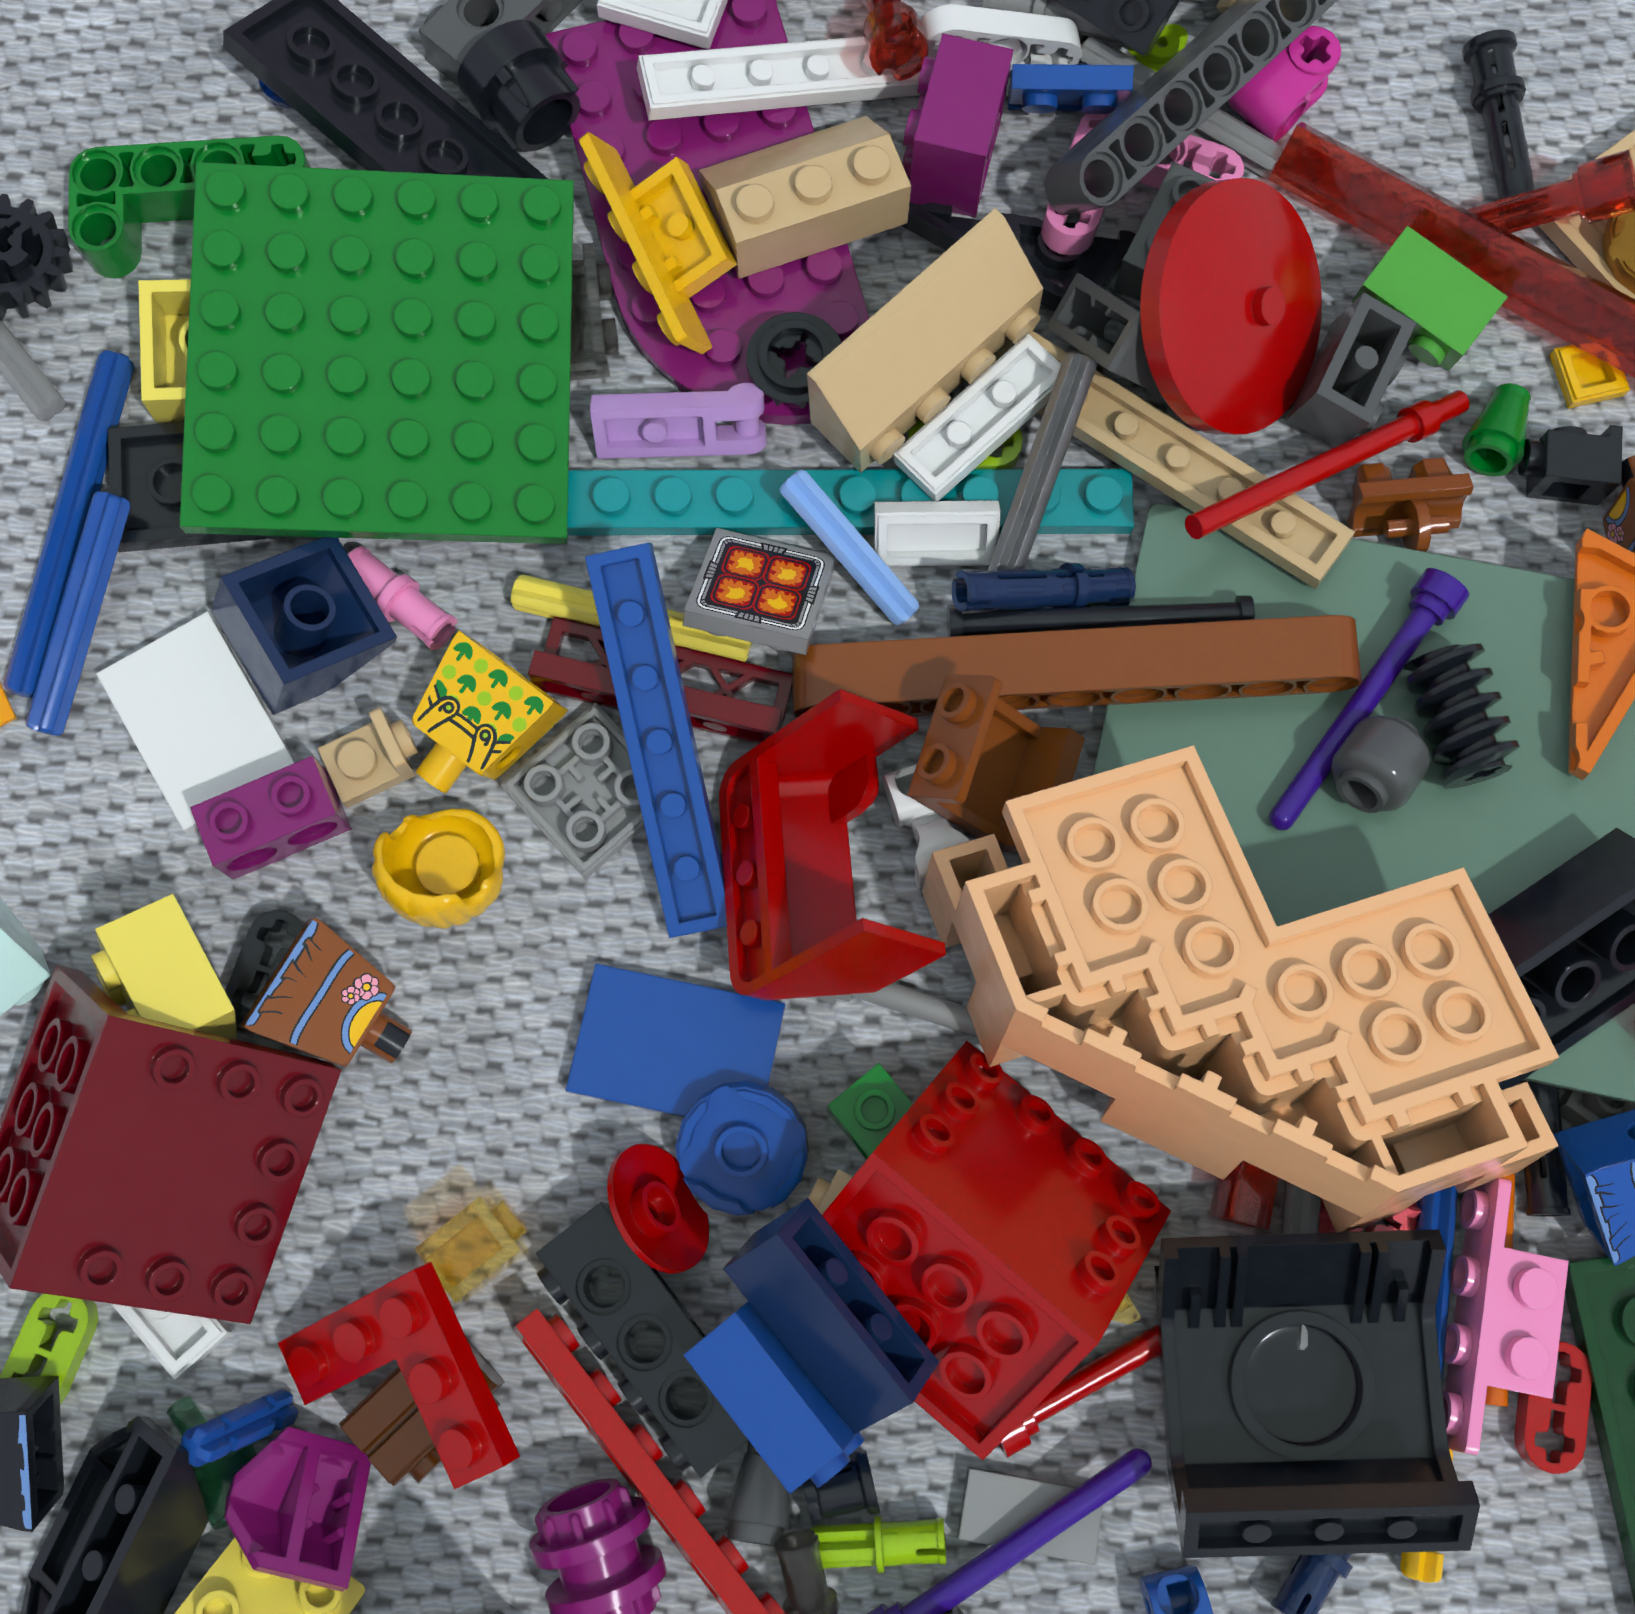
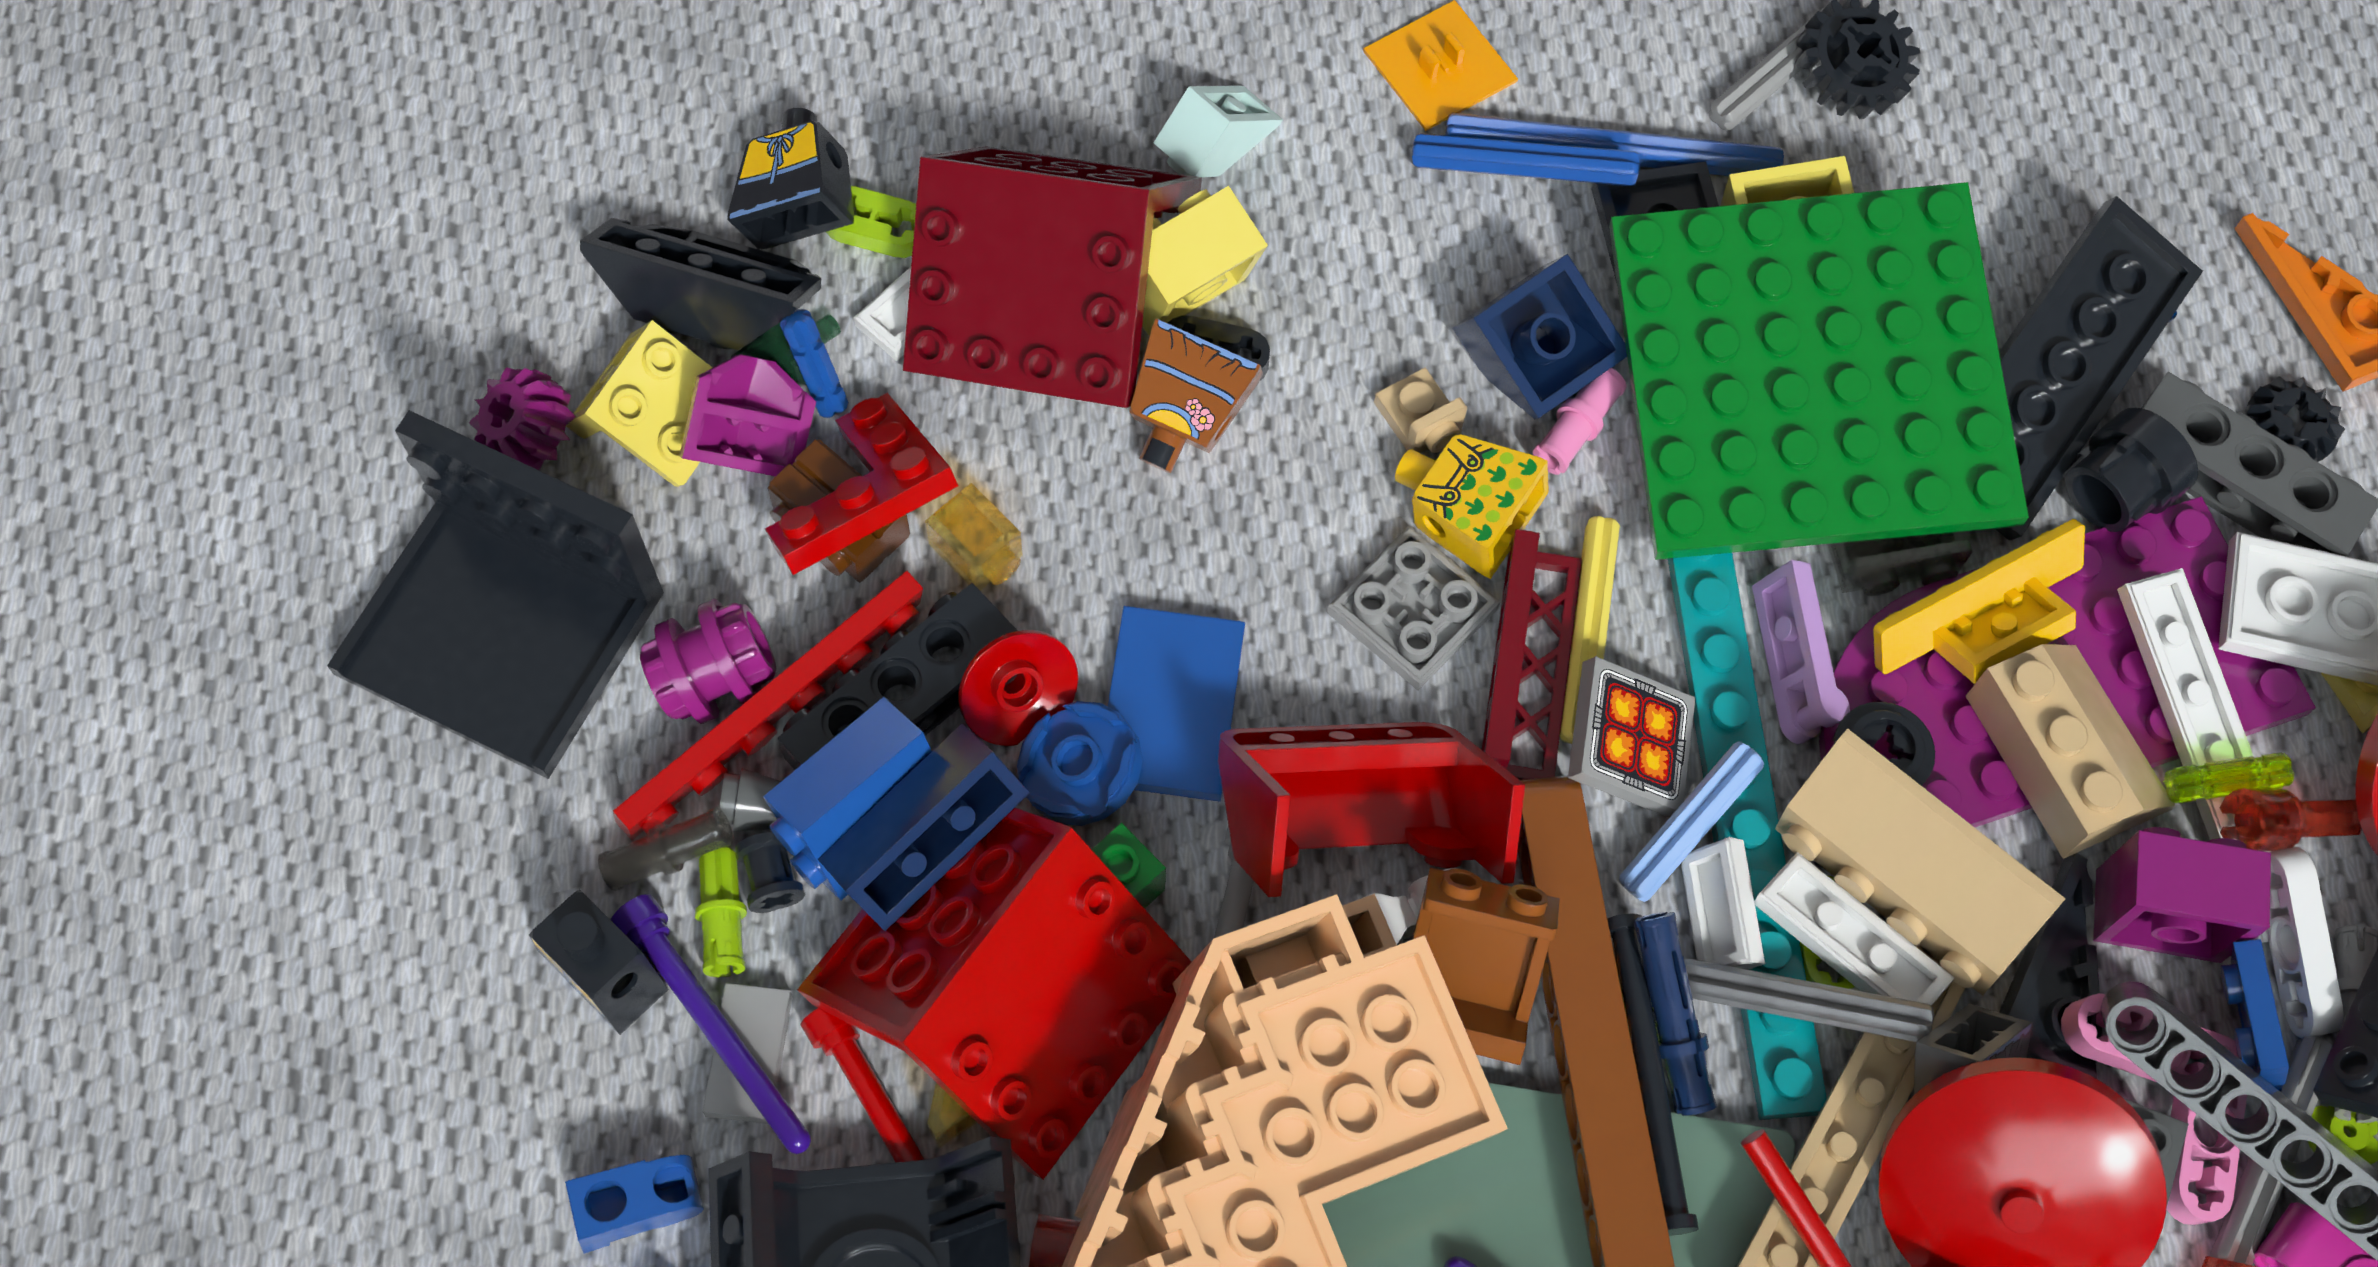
camera: 85 degrees right, 10 degrees down
(136, 191) = (1951, 146): green beam -> none
(194, 716) = (1436, 271): white tile -> none
(270, 818) = (1352, 333): magenta brick -> none
(440, 867) = (1320, 473): yellow piece -> none
(659, 738) = (1468, 644): blue plate -> none
(848, 62) = (2225, 776): none -> clear neon green axle

